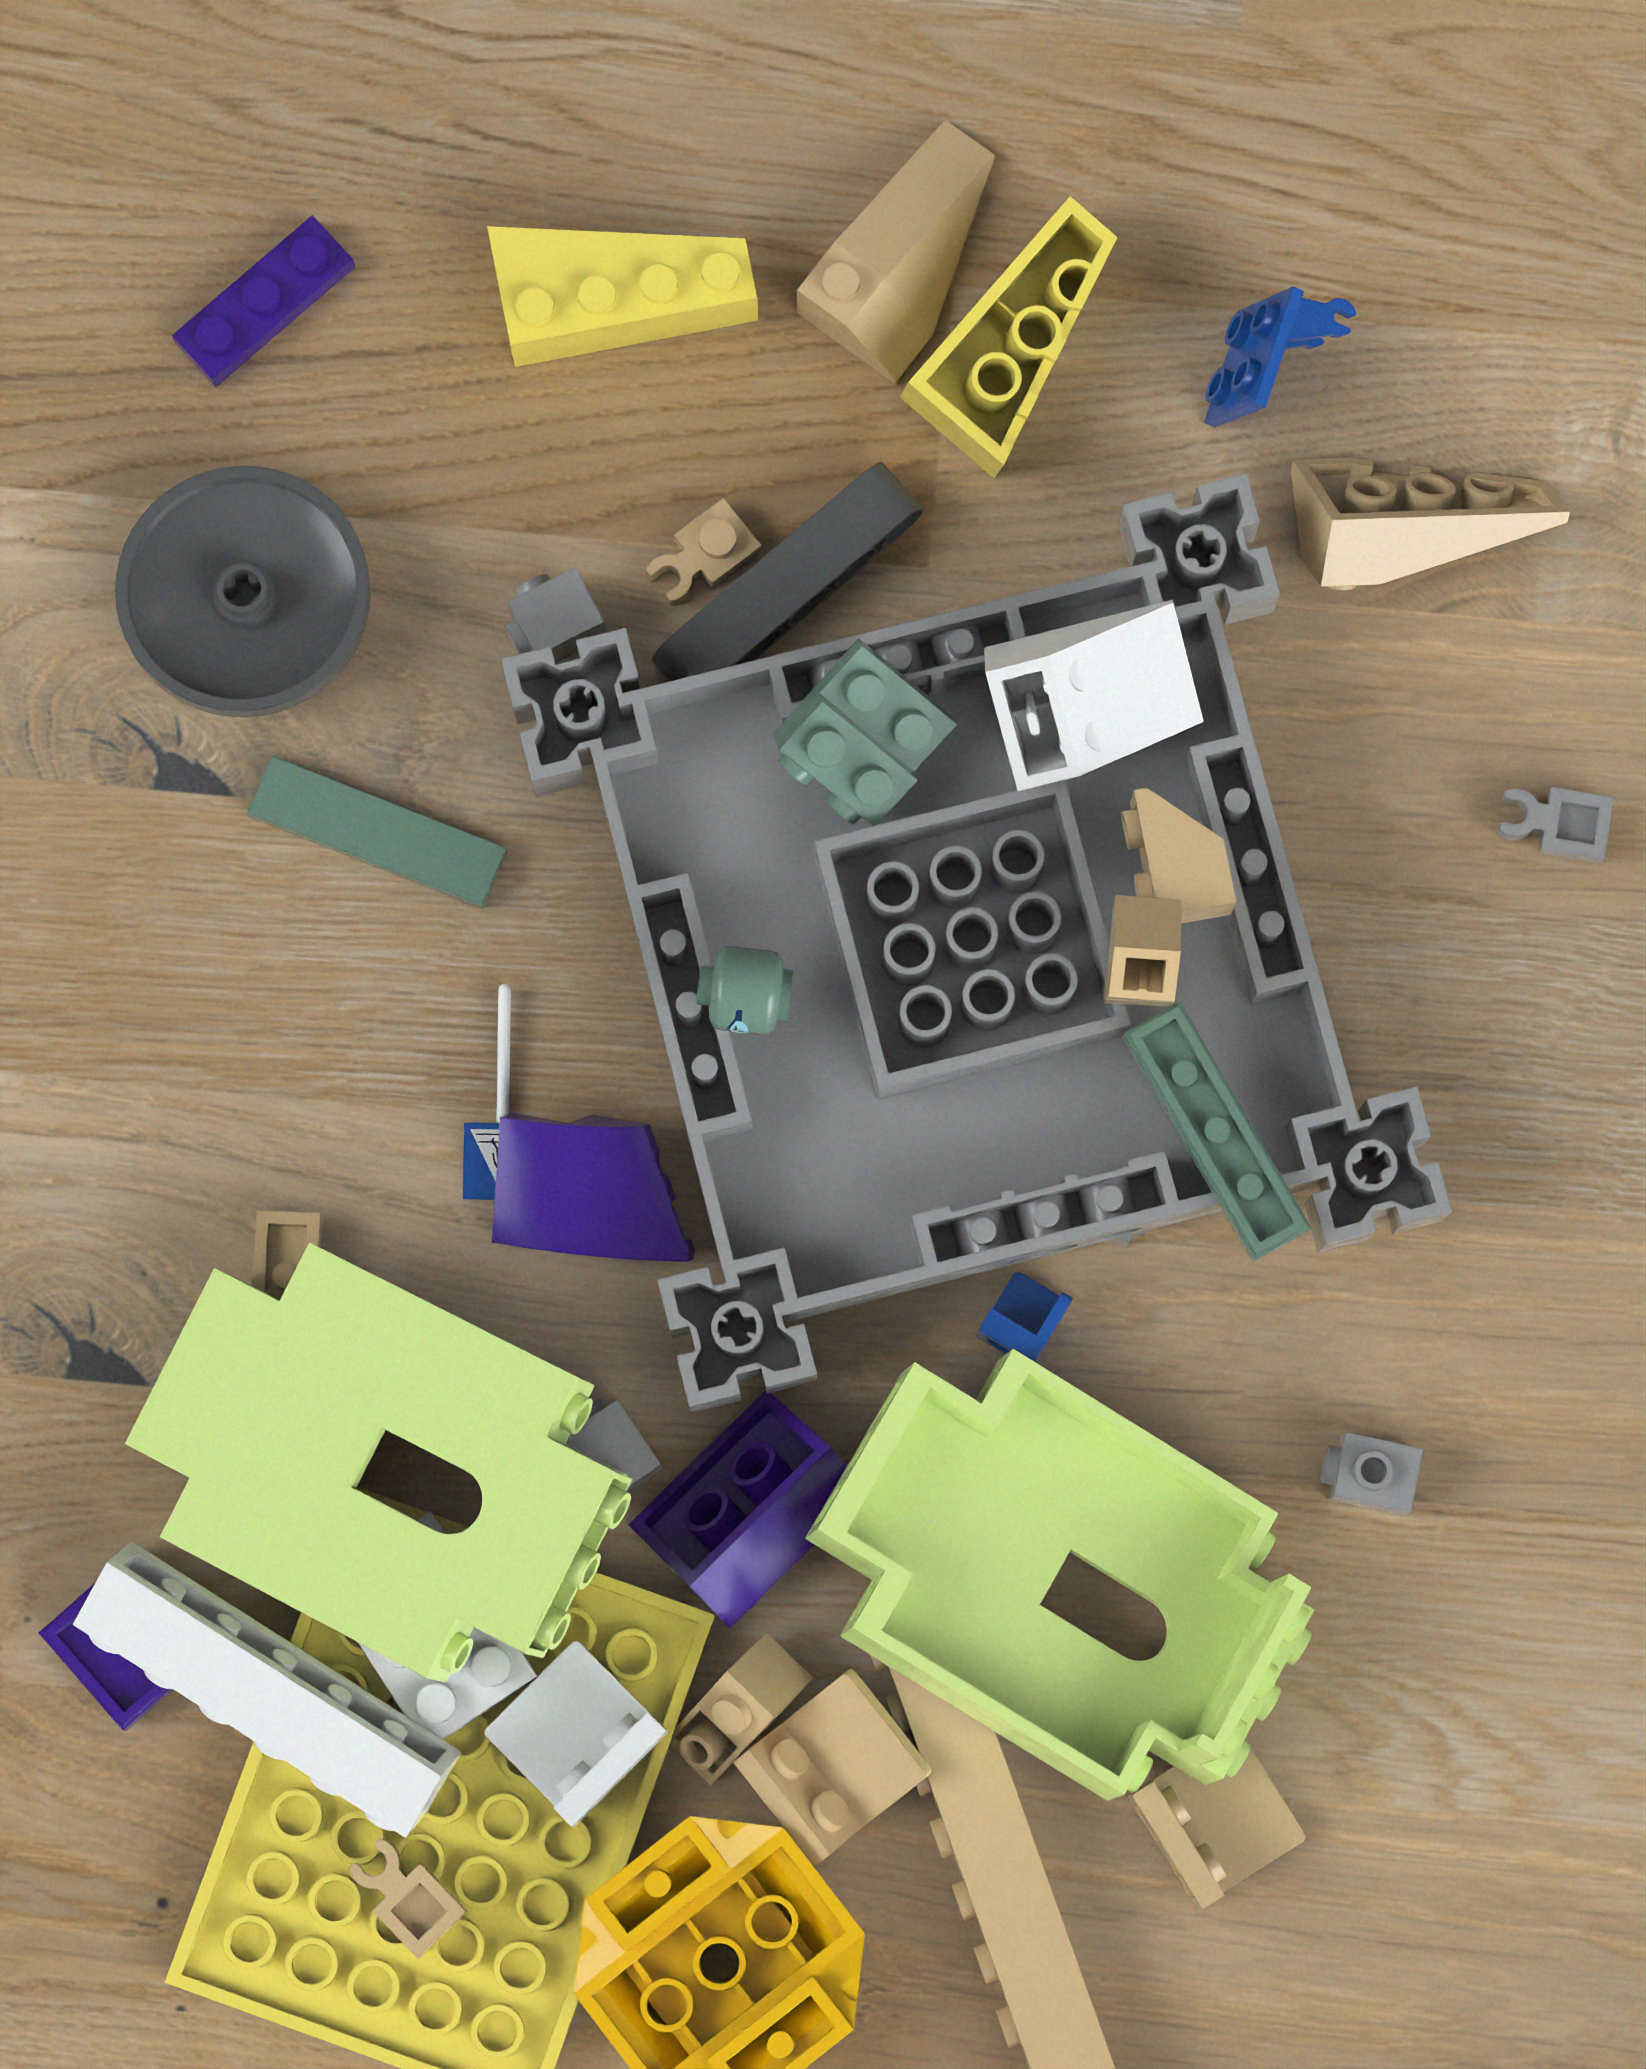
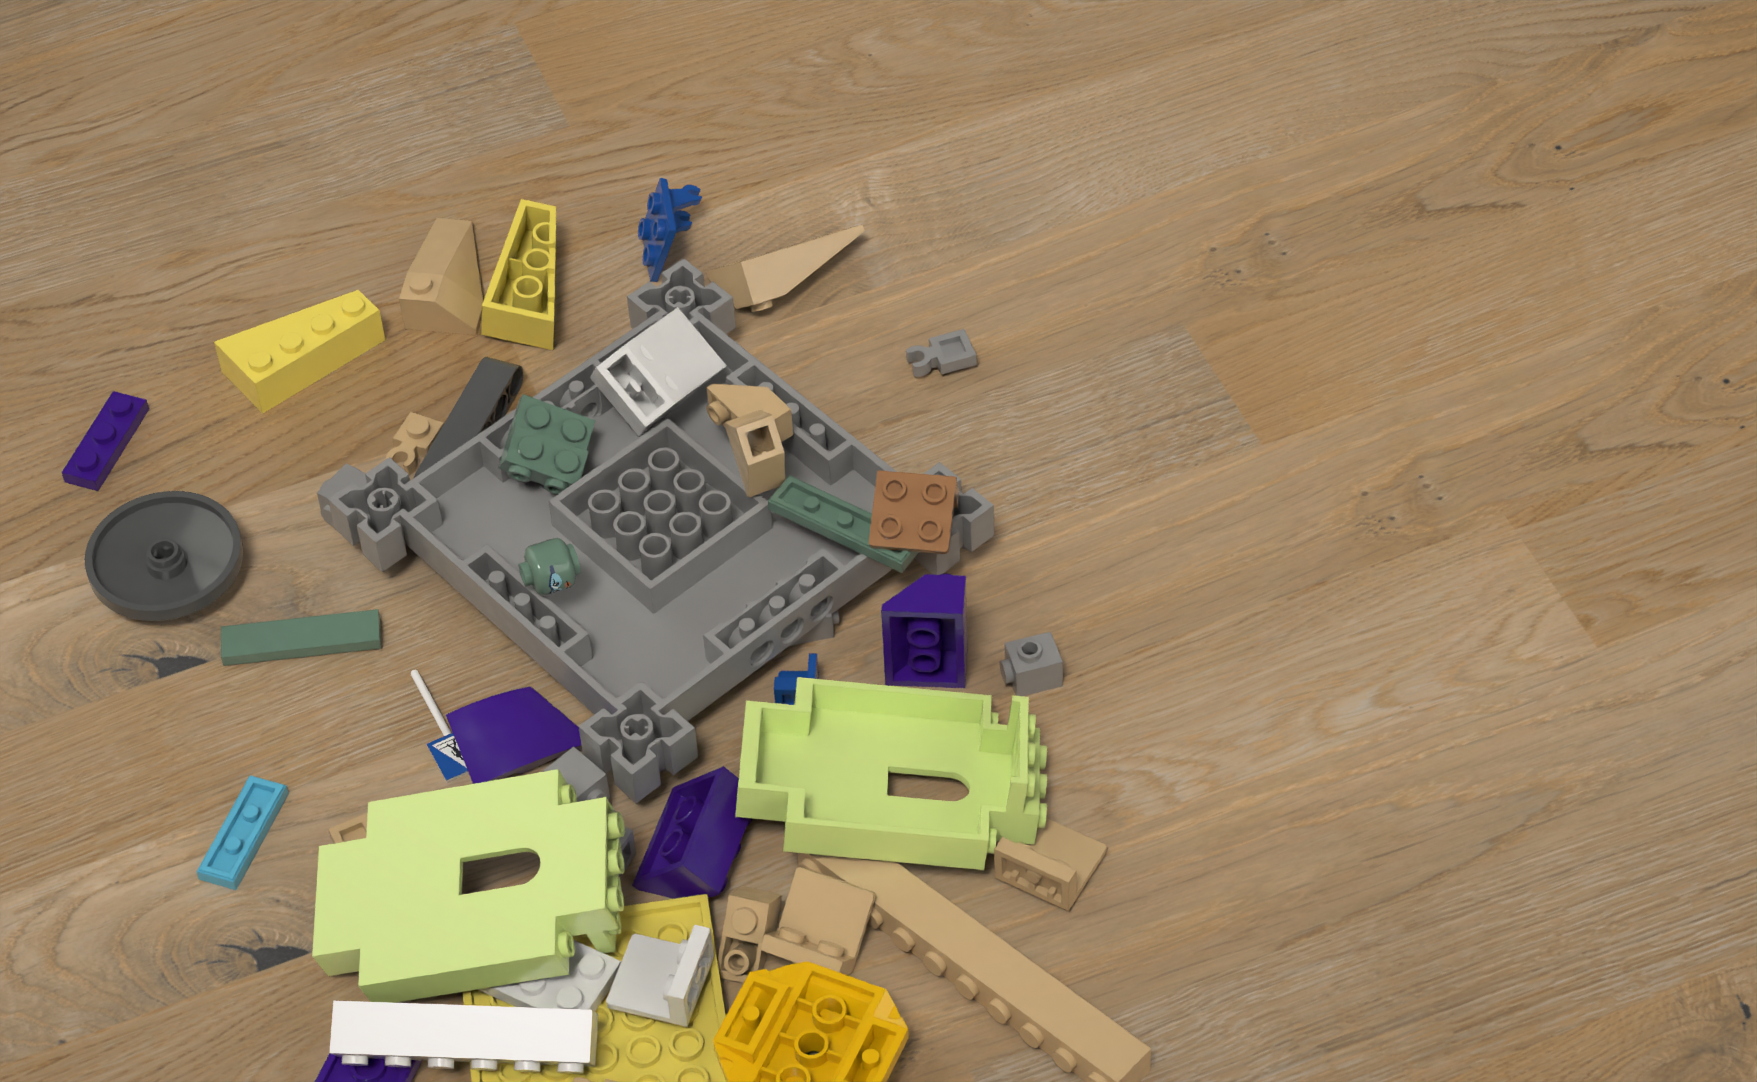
camera: 25 degrees left, 30 degrees down
(145, 1135) = (242, 832): none -> medium azure tile
(628, 1333) = (583, 774): none -> light grey brick
(1246, 1374) = (927, 633): none -> dark purple slope
(1316, 1187) = (913, 512): none -> medium nougat bracket

